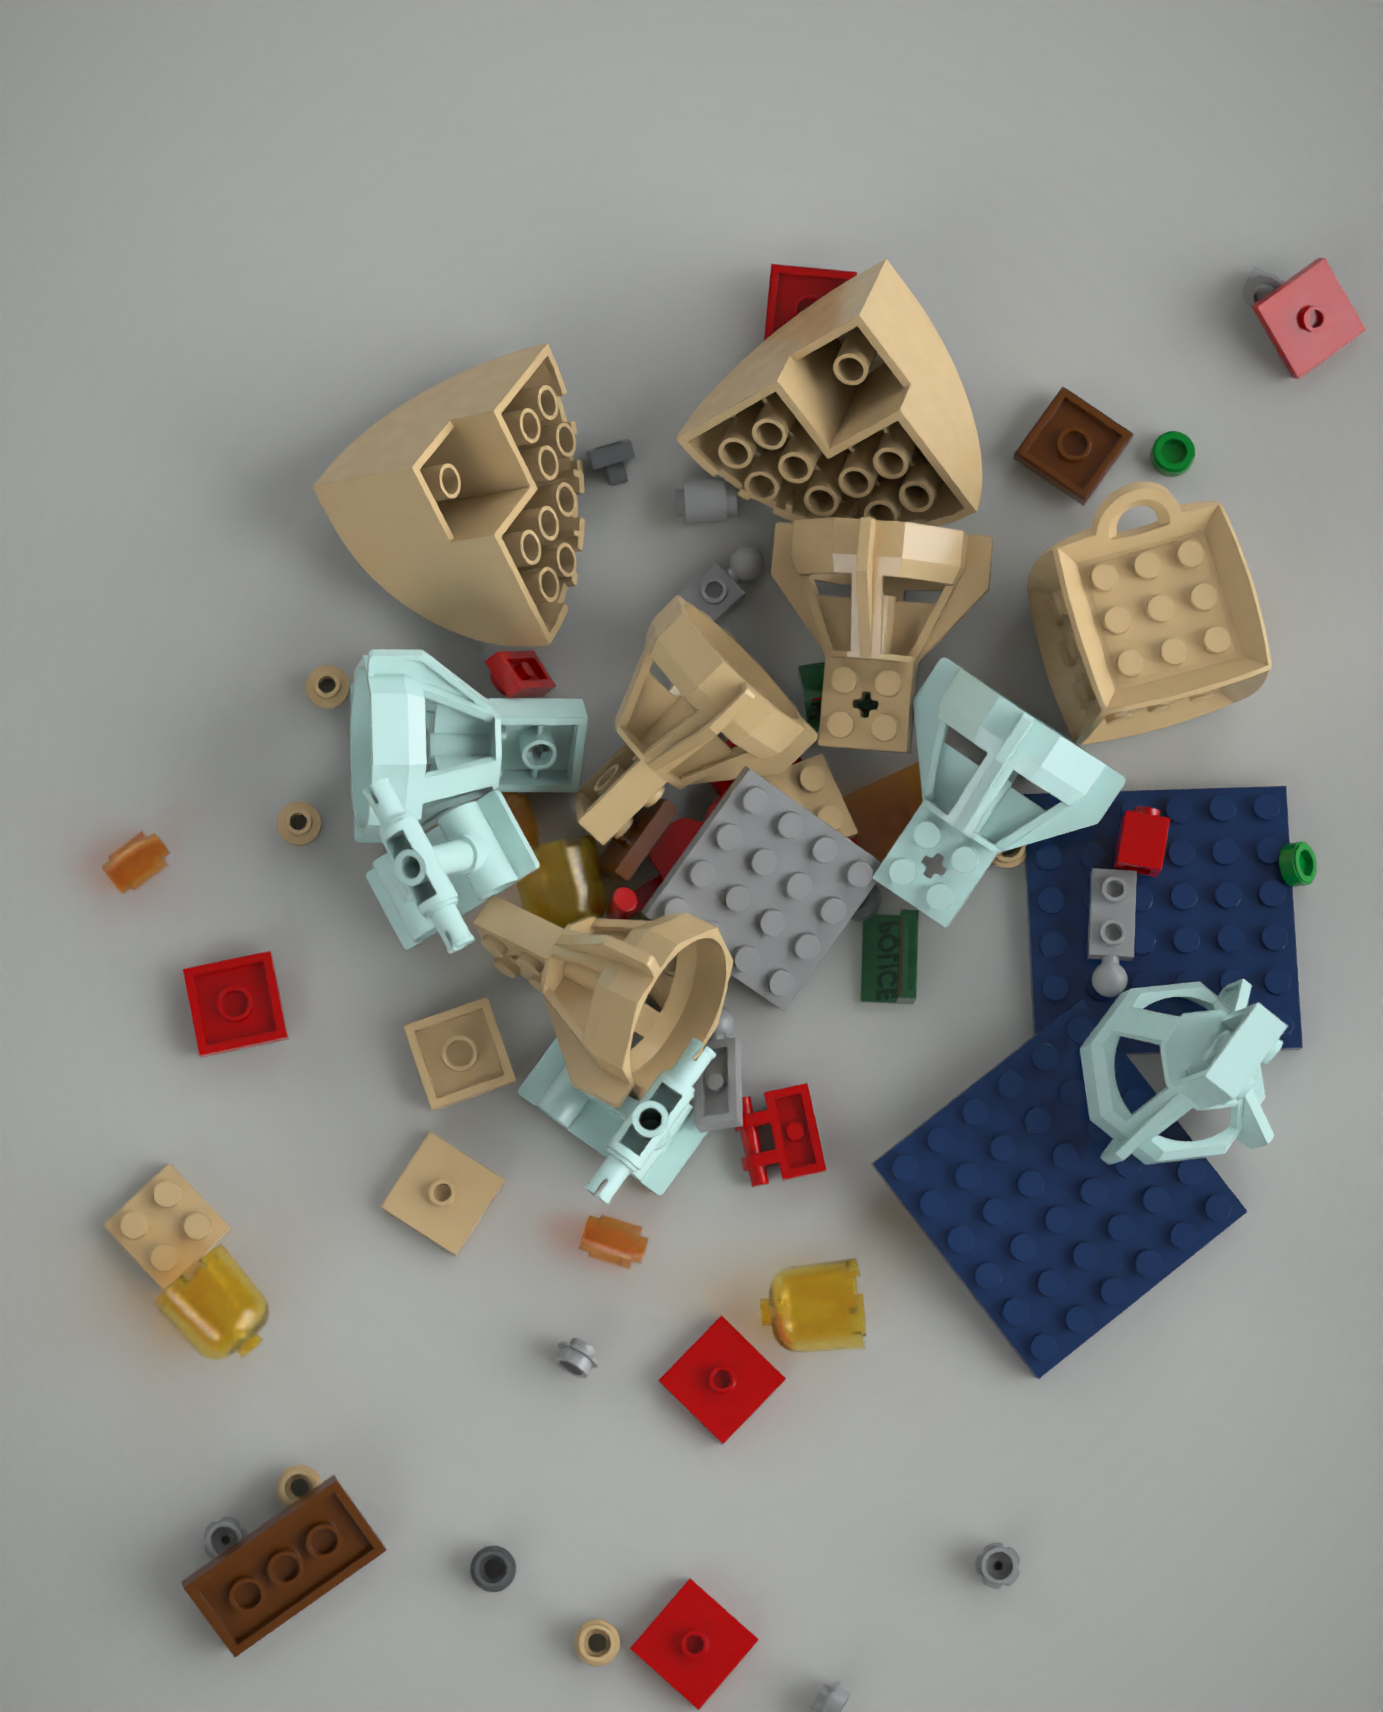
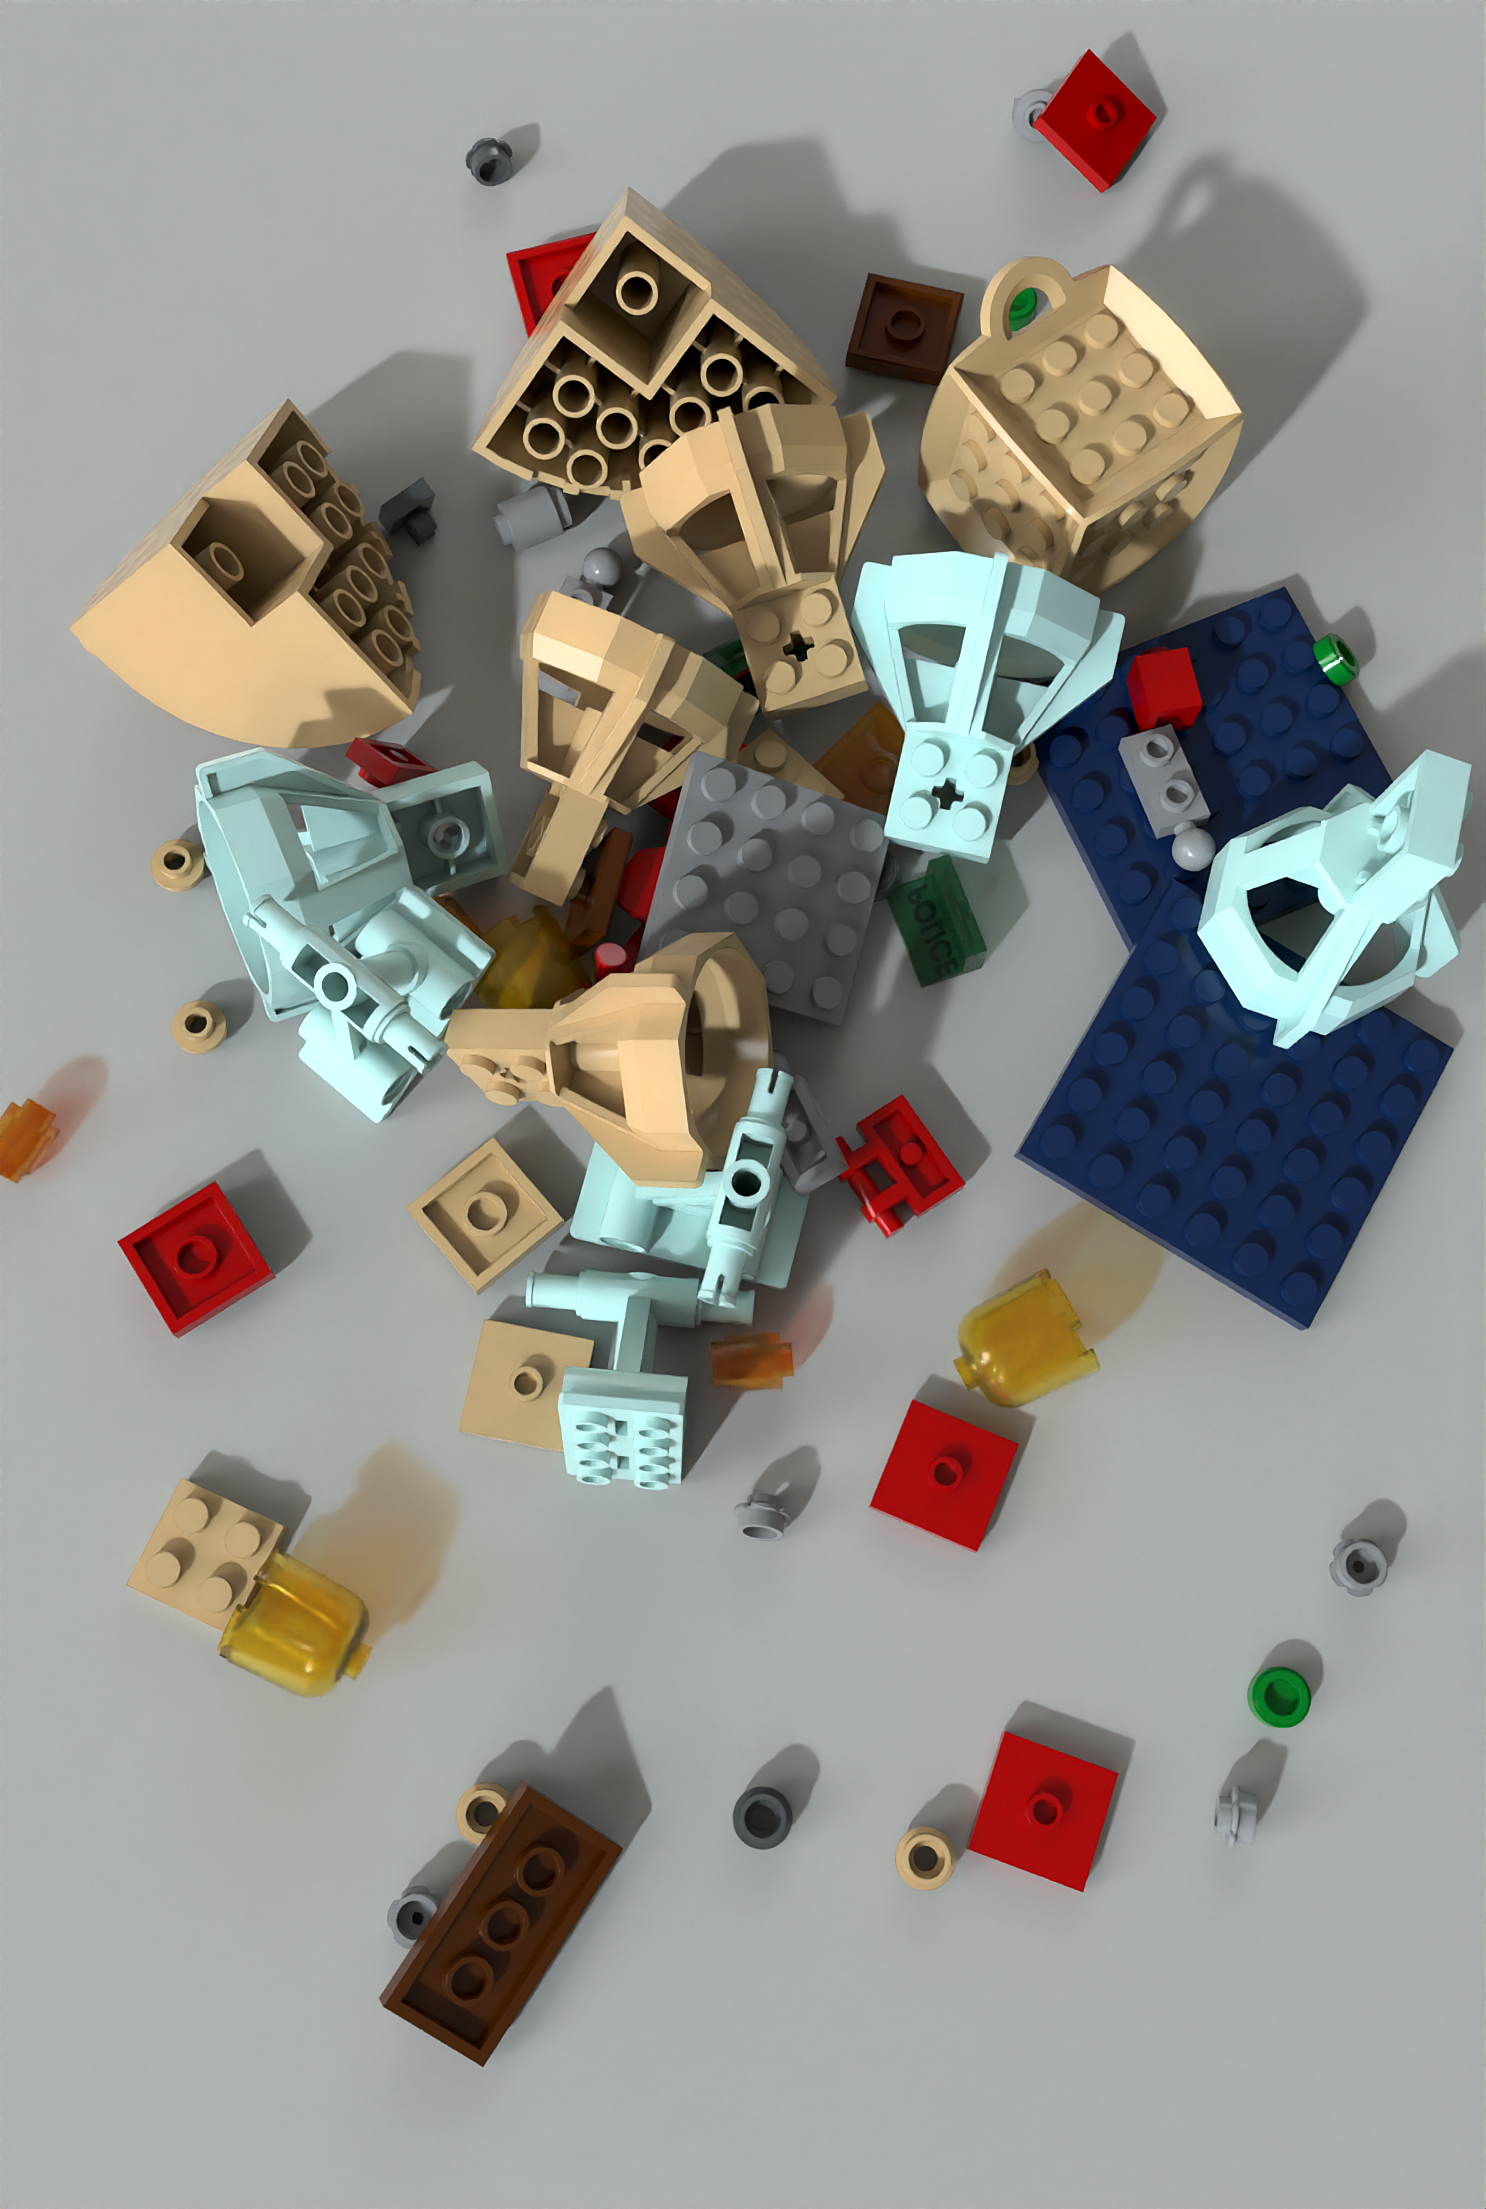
camera: 20 degrees left, 5 degrees down
(505, 1249) = (627, 1417): none -> light aqua plate
(792, 165) = (490, 161): none -> dark grey plate
(899, 1634) = (1279, 1697): none -> green tile

